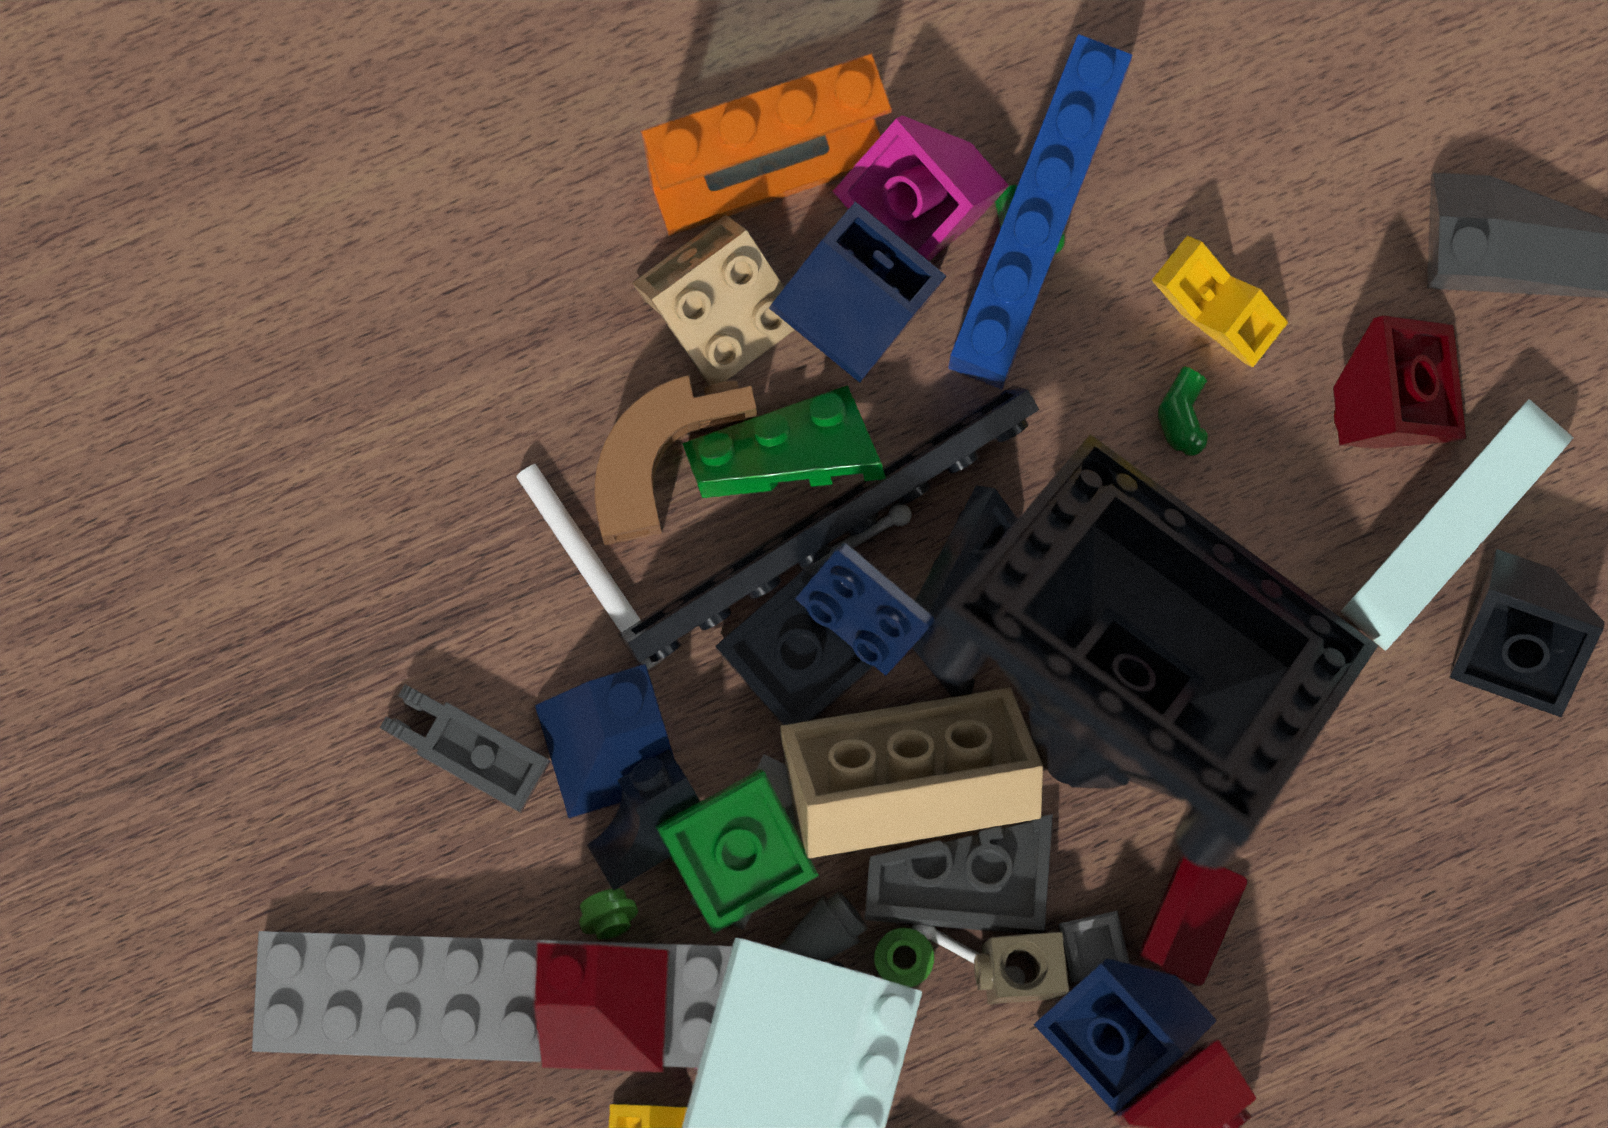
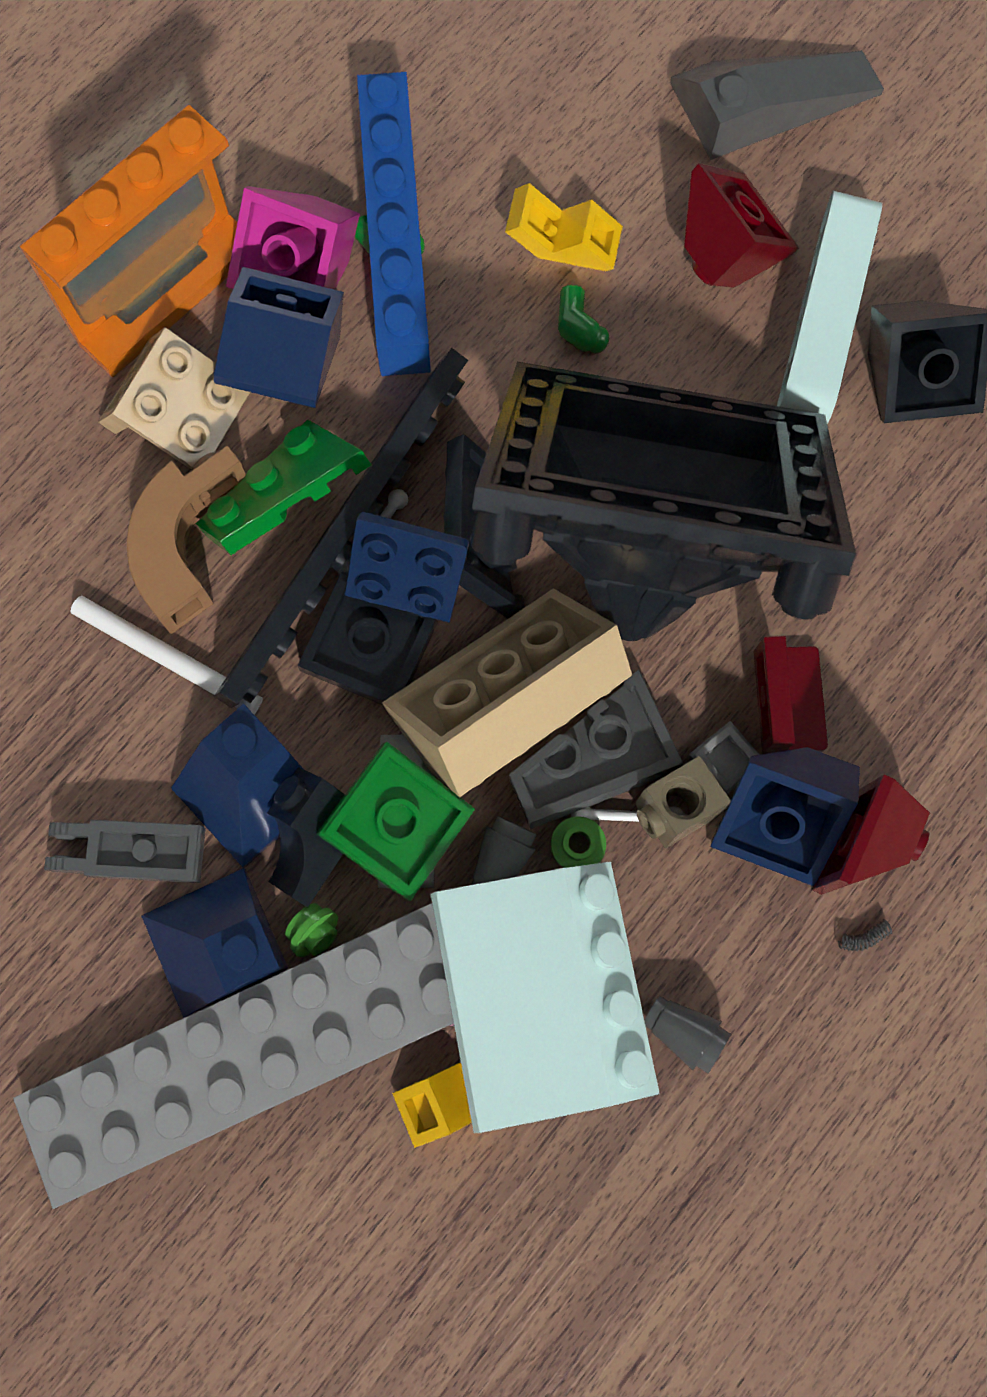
camera: 30 degrees left, 5 degrees down
(508, 878) = (214, 942): none -> dark blue slope
(601, 1006) = (340, 1013): dark red slope -> none

